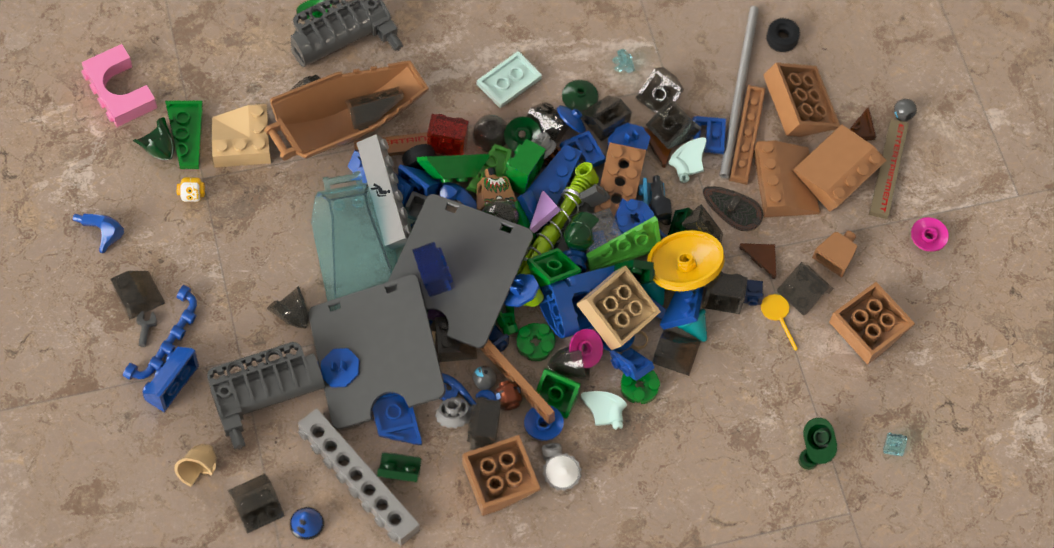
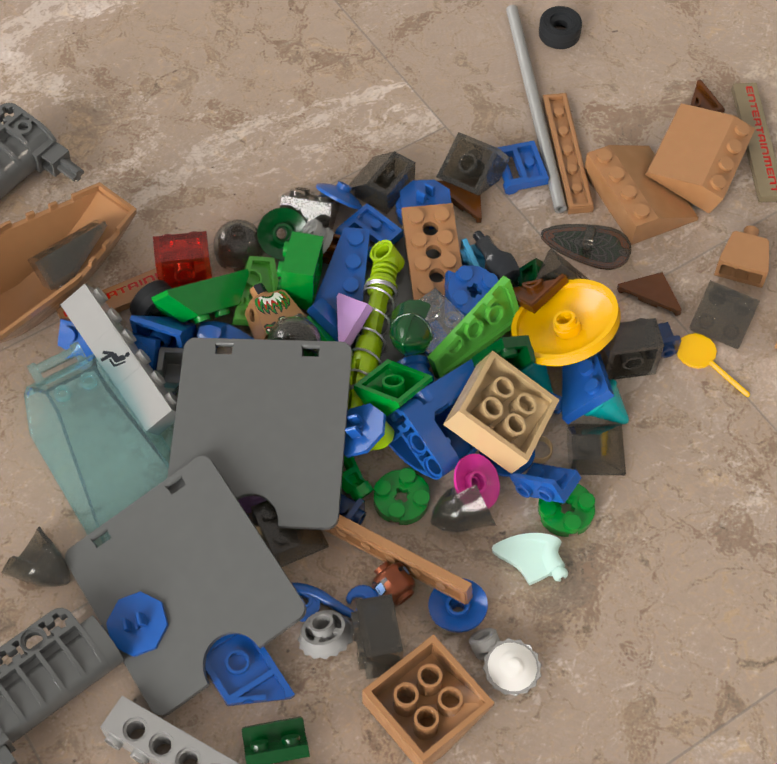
camera: 15 degrees left, 5 degrees down
(433, 269) = (228, 437): clear blue brick -> none
(484, 377) = (350, 569): dark grey piece -> none
(509, 79) = (238, 174): light aqua plate -> none
(558, 391) = (462, 553): green slope -> none
(581, 102) = (336, 166): dark green dish -> none
(594, 196) = (409, 279): dark grey tile -> none
(625, 61) = (378, 111): clear light blue tile -> none
(659, 89) = (437, 130): clear smoke slope -> none
(676, 233) = (538, 292): none -> reddish brown tile
(688, 158) = (508, 201): light aqua arm -> none
(800, 99) = (614, 93): medium nougat slope -> none
(905, 109) = (745, 68): dark grey piece -> none

